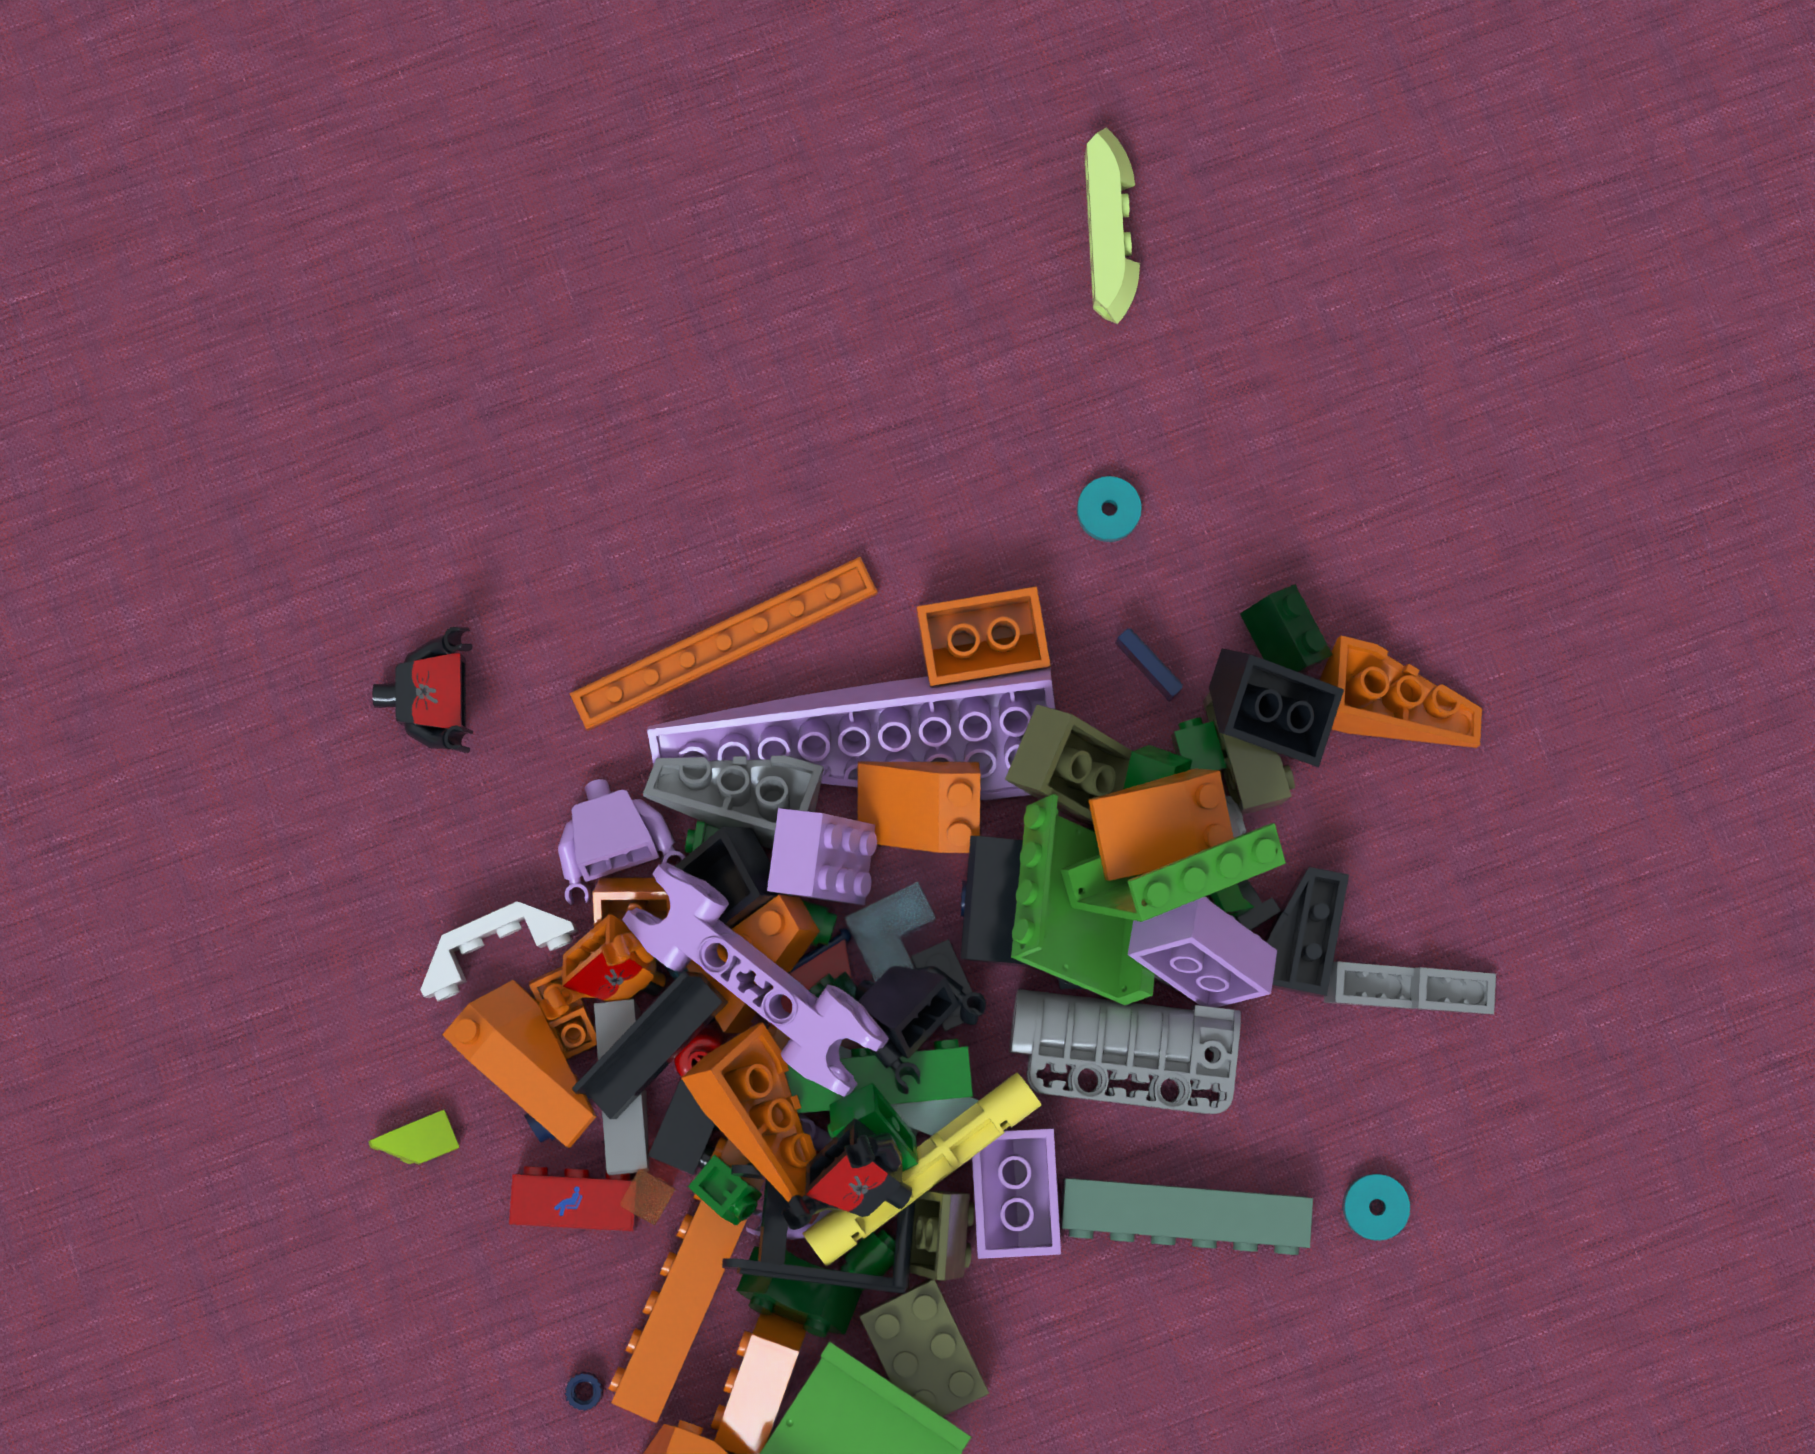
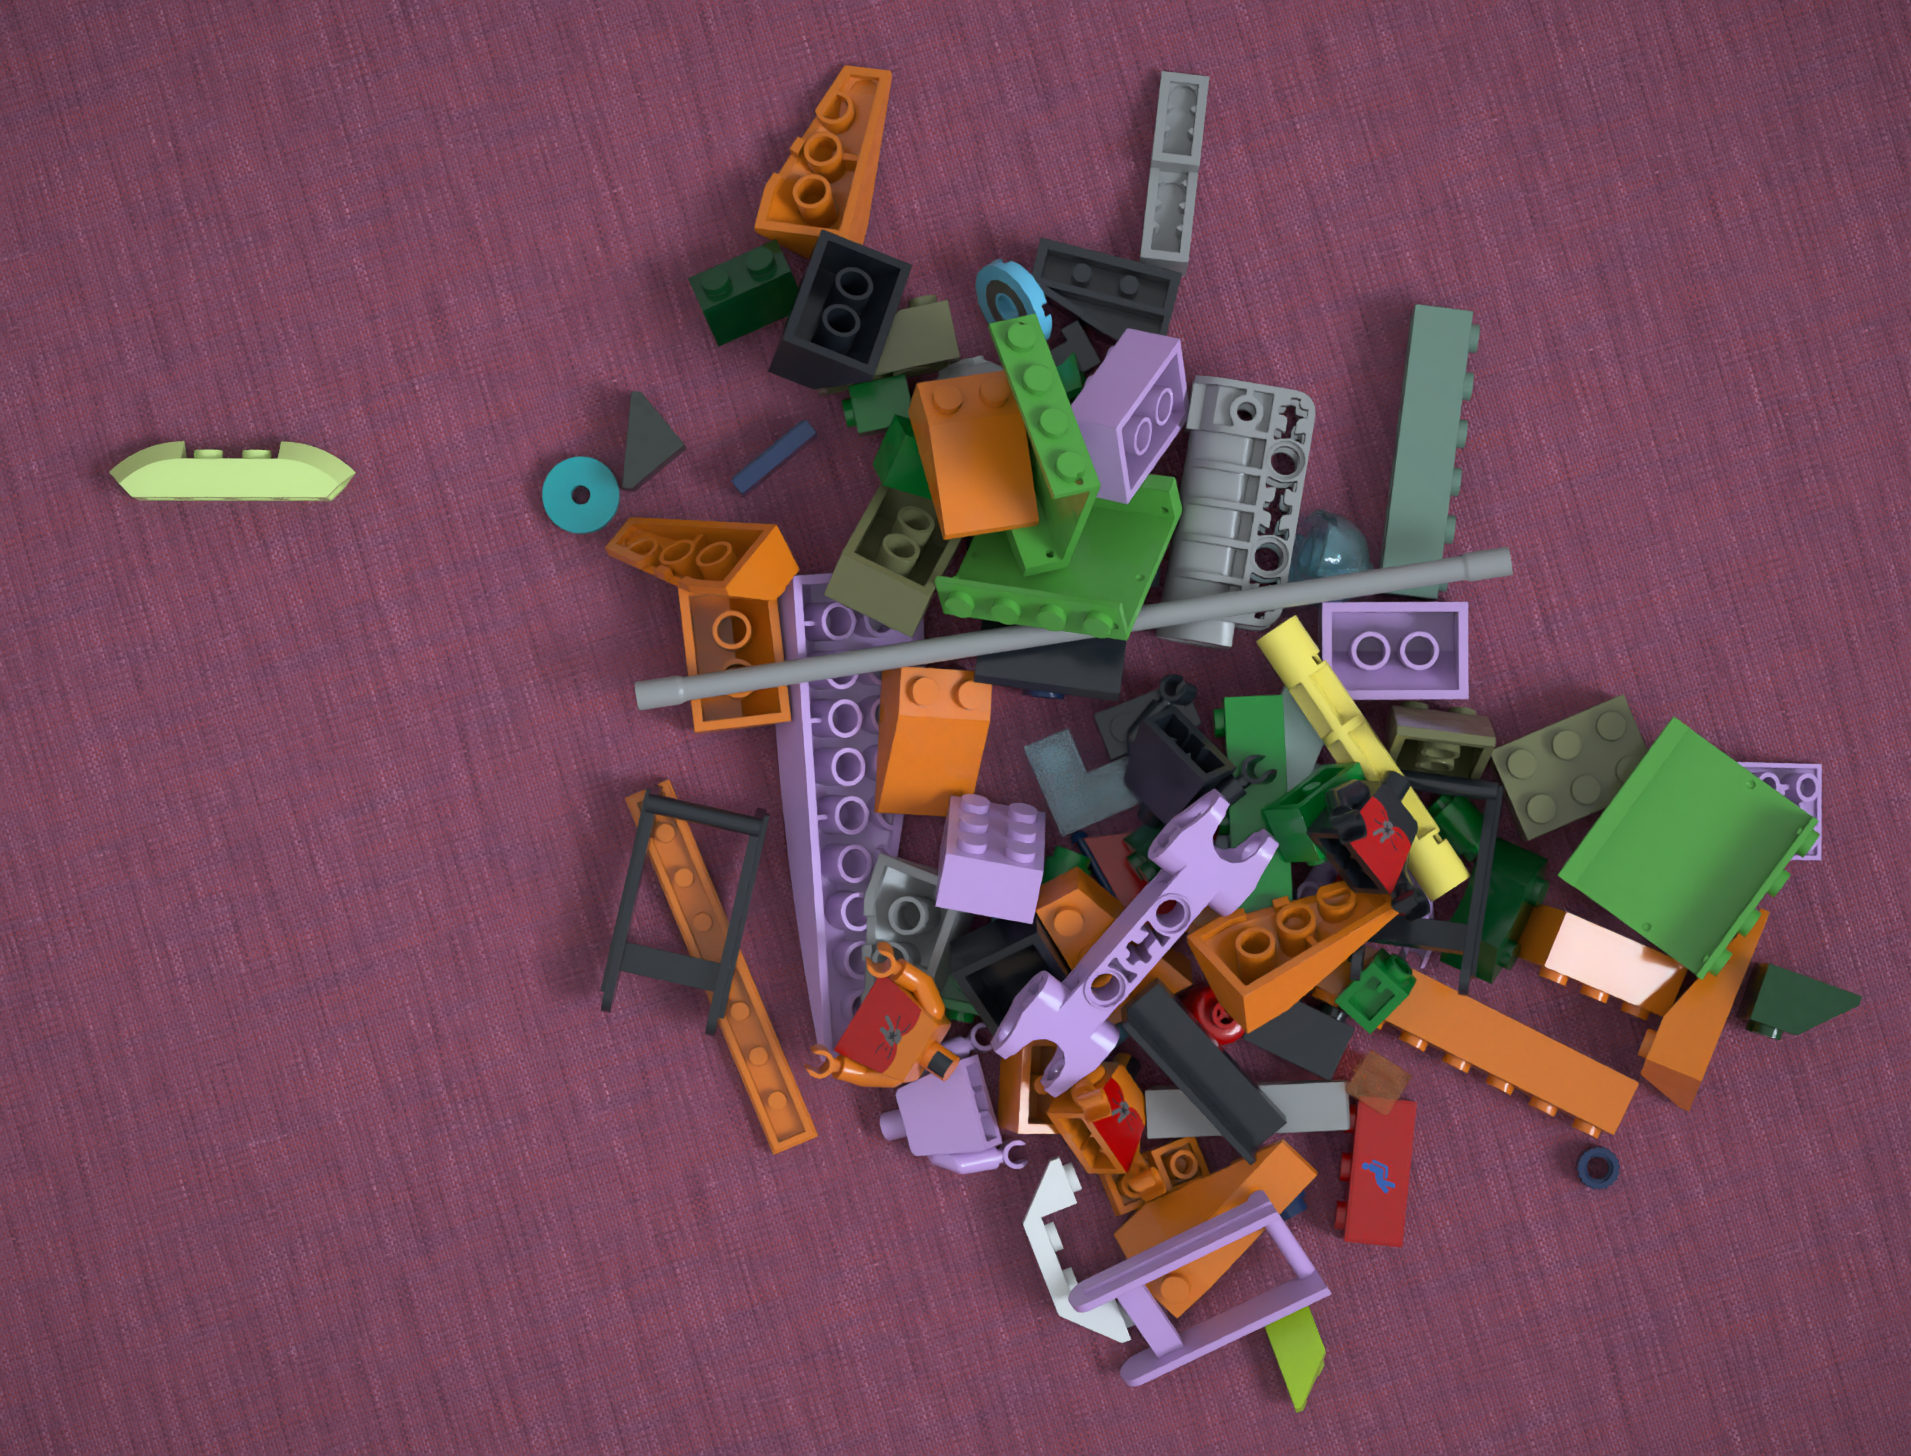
camera: 85 degrees left, 5 degrees up
(416, 1034) = (1173, 1349): none -> lavender piece
(431, 692) = (766, 1320): torso -> none
(674, 782) = (893, 1031): none -> torso
(722, 597) = (670, 965): none -> black piece
(1063, 610) = (708, 556): none -> orange wedge
(1088, 1134) = (1329, 549): none -> clear light blue cylinder
(1090, 1251) = (679, 689): none -> light grey piece
(1155, 560) = (649, 443): none -> pearl dark grey slope
(1302, 851) = (1009, 293): none -> medium azure tile
(1395, 1207) = (1432, 208): teal piece -> none

